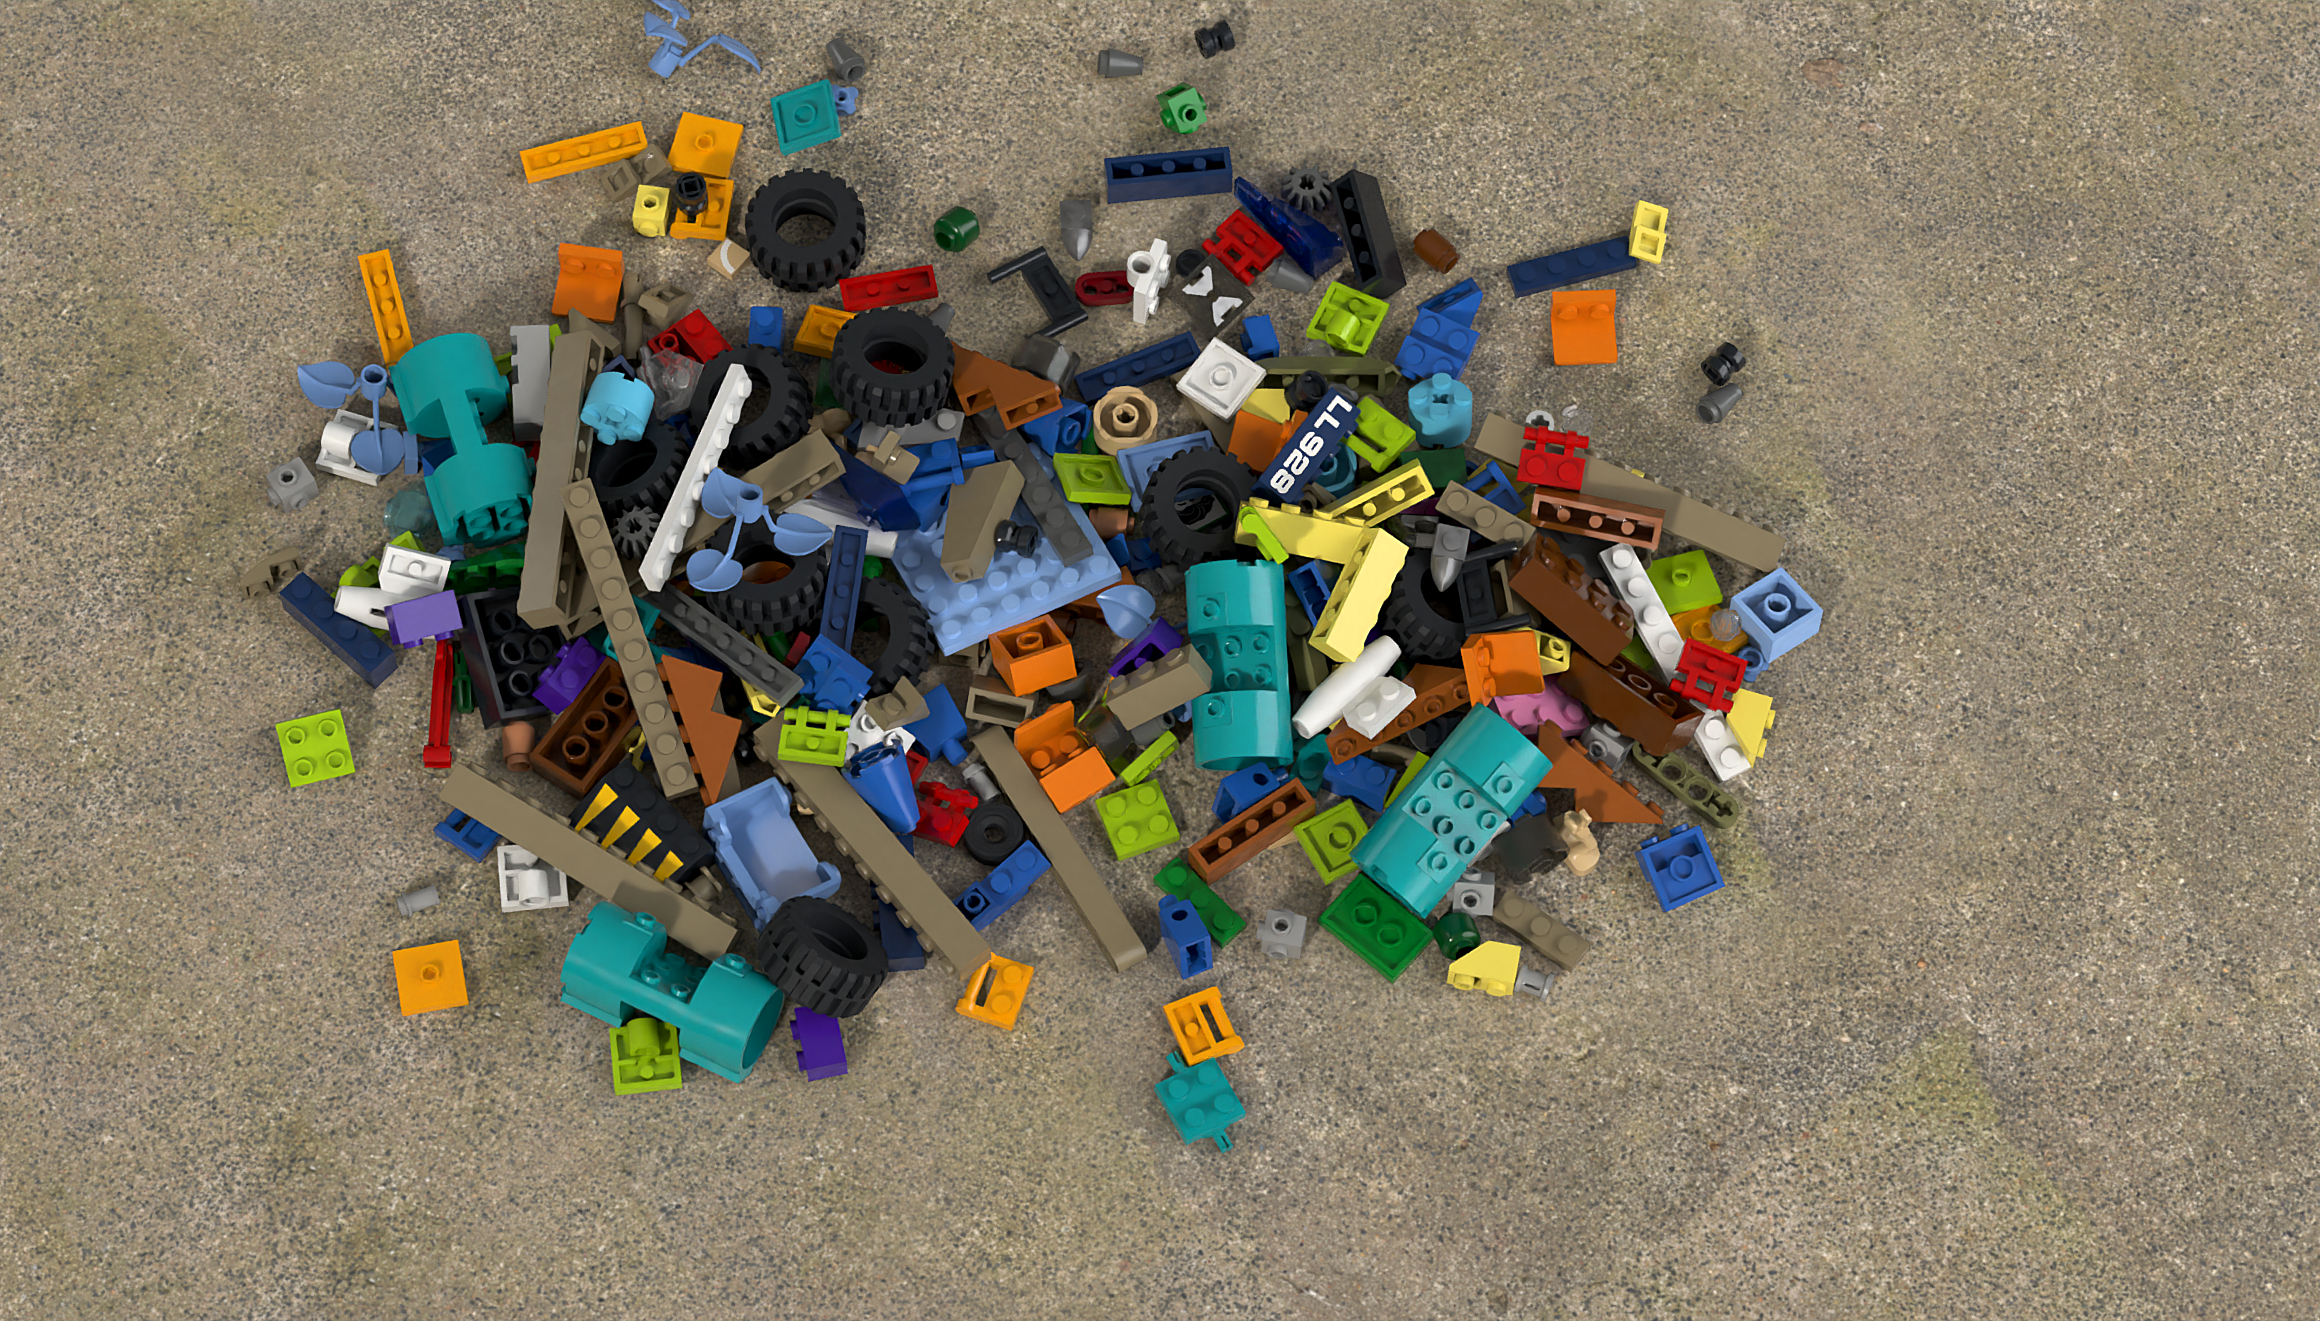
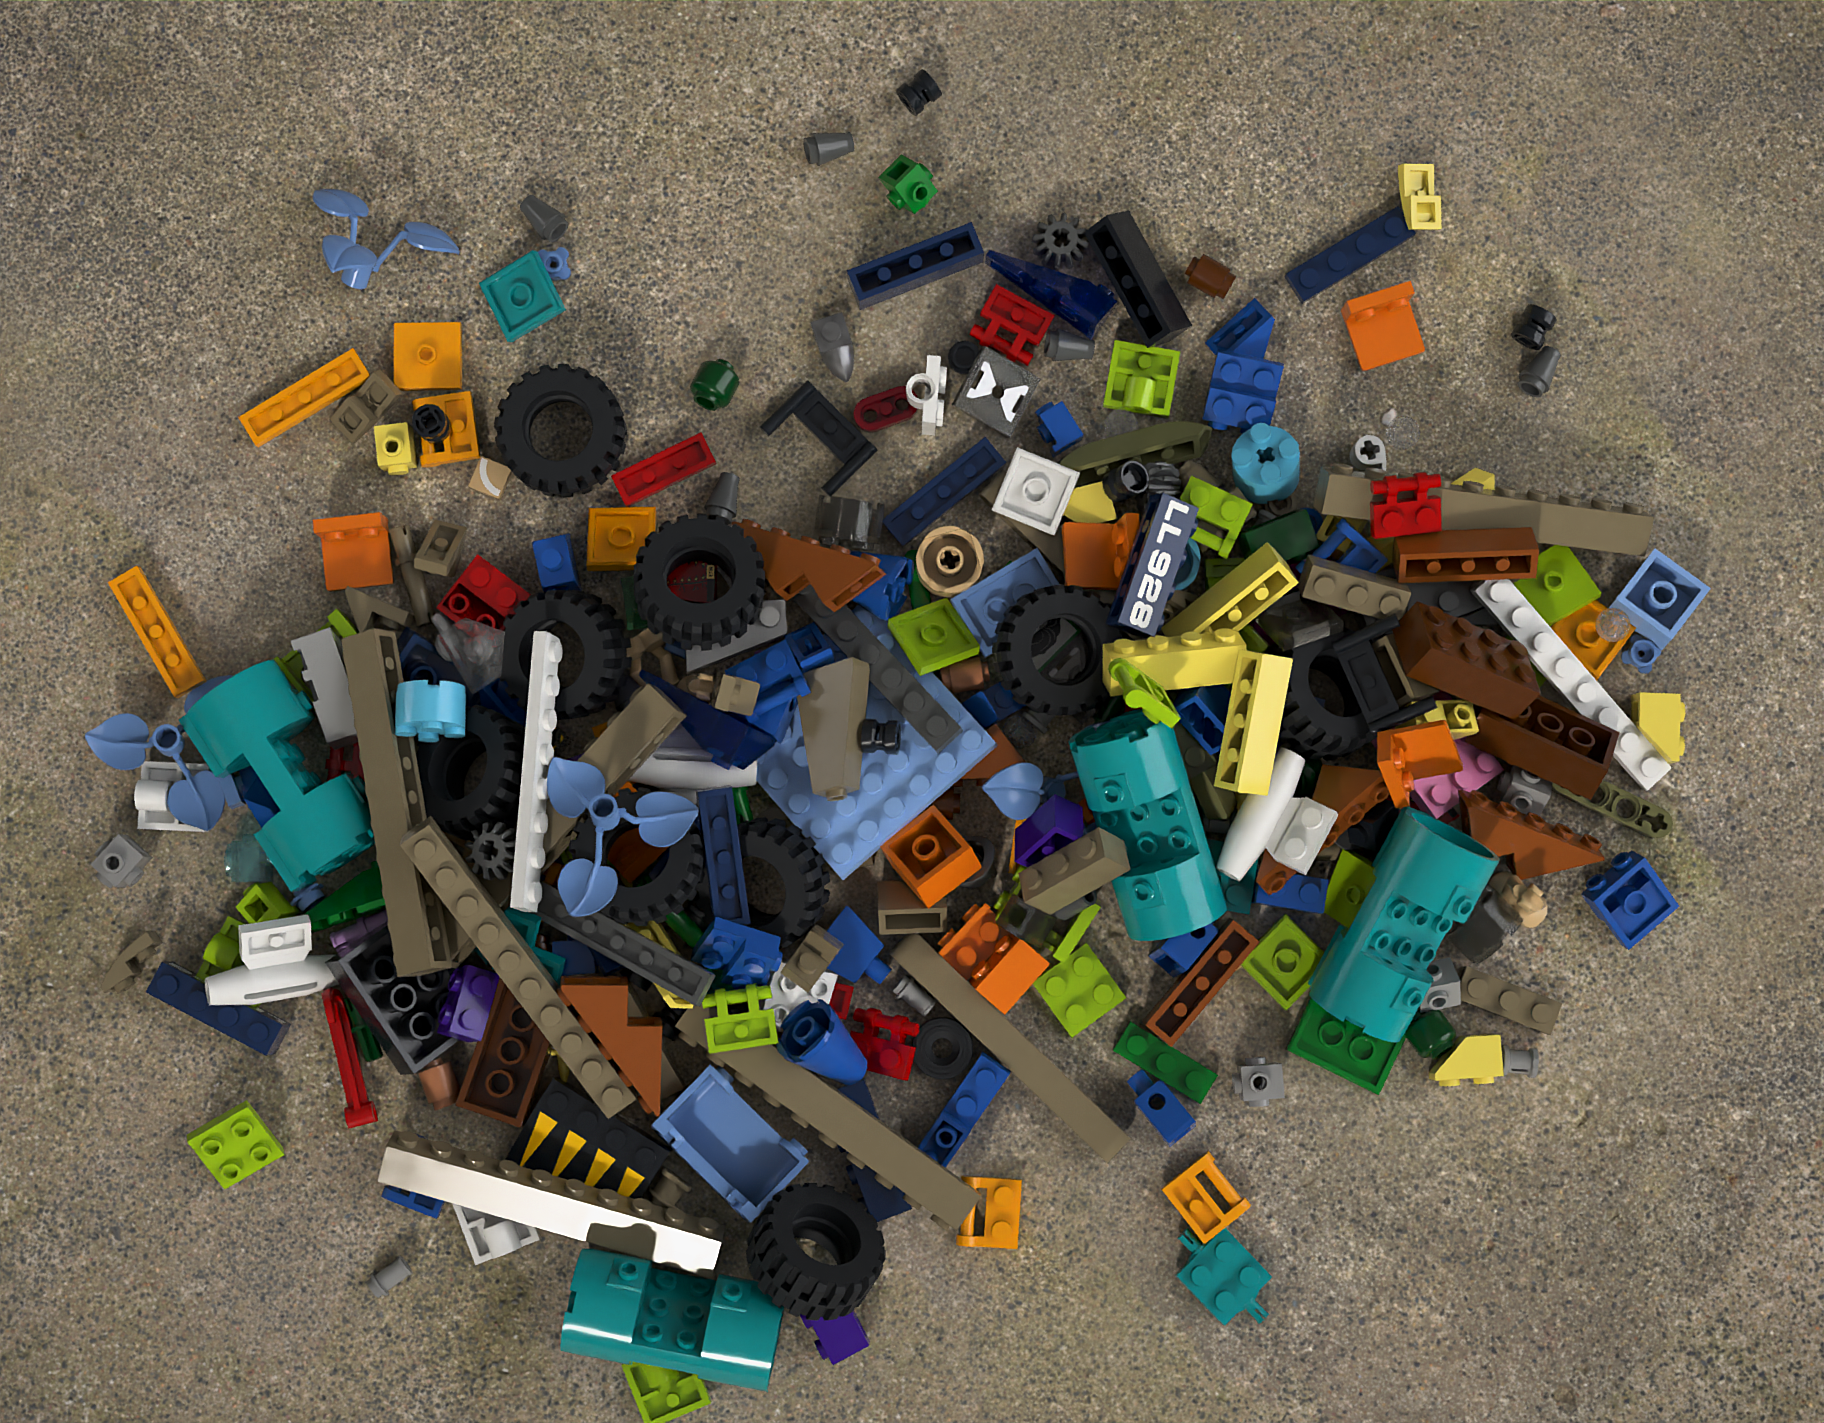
camera: 15 degrees left, 20 degrees up
(422, 618) = (301, 992): brick -> none
(430, 977) = (427, 1353): light orange plate -> none
(796, 651) = (692, 927): dark red tile -> none
(1448, 554) = (1330, 646): flat silver plate -> none
(1712, 667) = (1616, 683): red plate -> none

